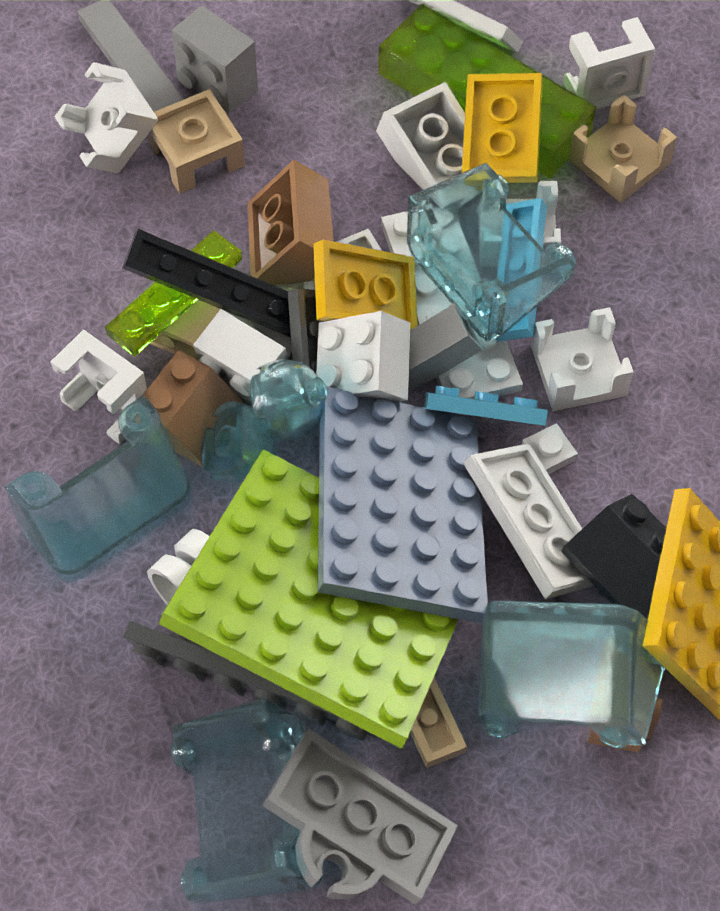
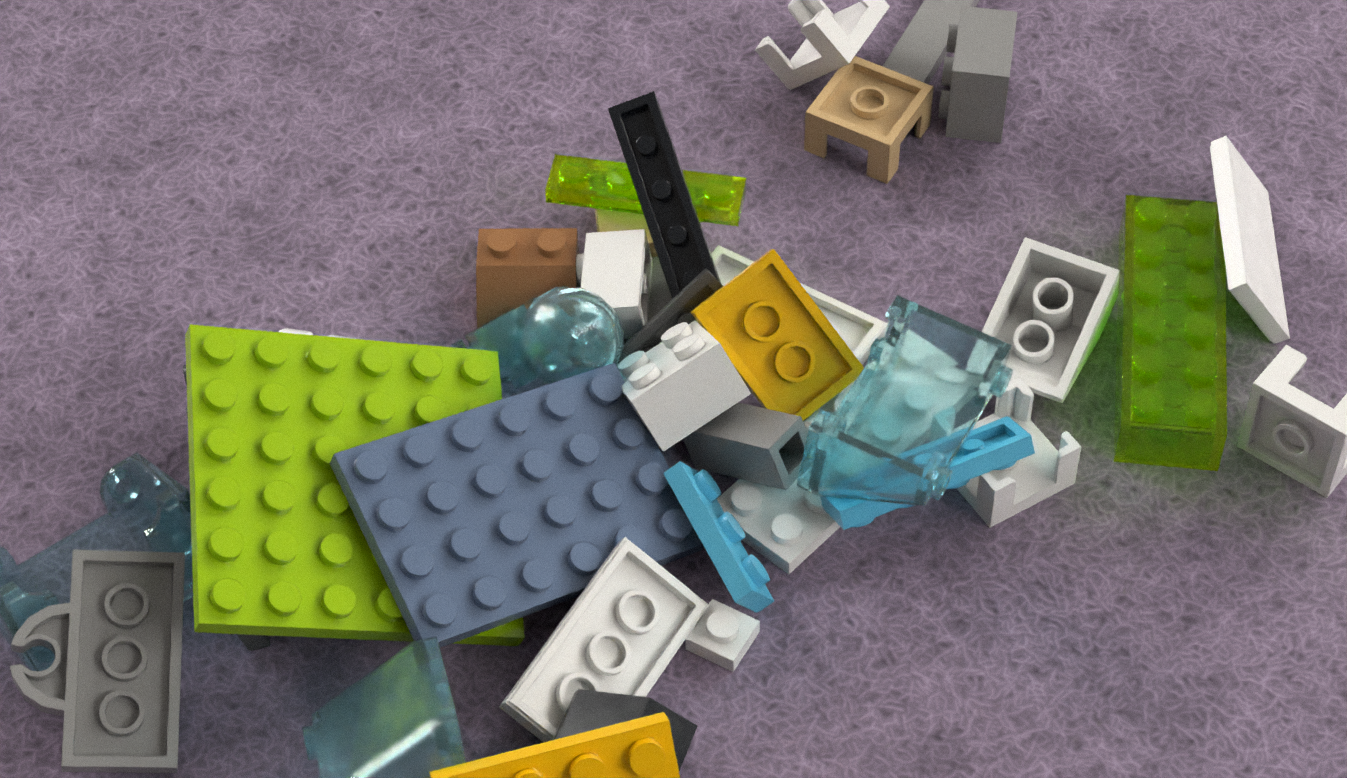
camera: 60 degrees right, 10 degrees down
(101, 371) = (500, 196): white panel -> none
(107, 503) = (365, 268): clear light blue windscreen -> none
(286, 223) = (834, 245): medium nougat slope -> none
(436, 730) = (290, 682): tan plate -> none
(503, 124) = (1100, 352): yellow plate -> none
(581, 363) = (860, 605): white panel -> none
(620, 153) = (1204, 508): tan panel -> none

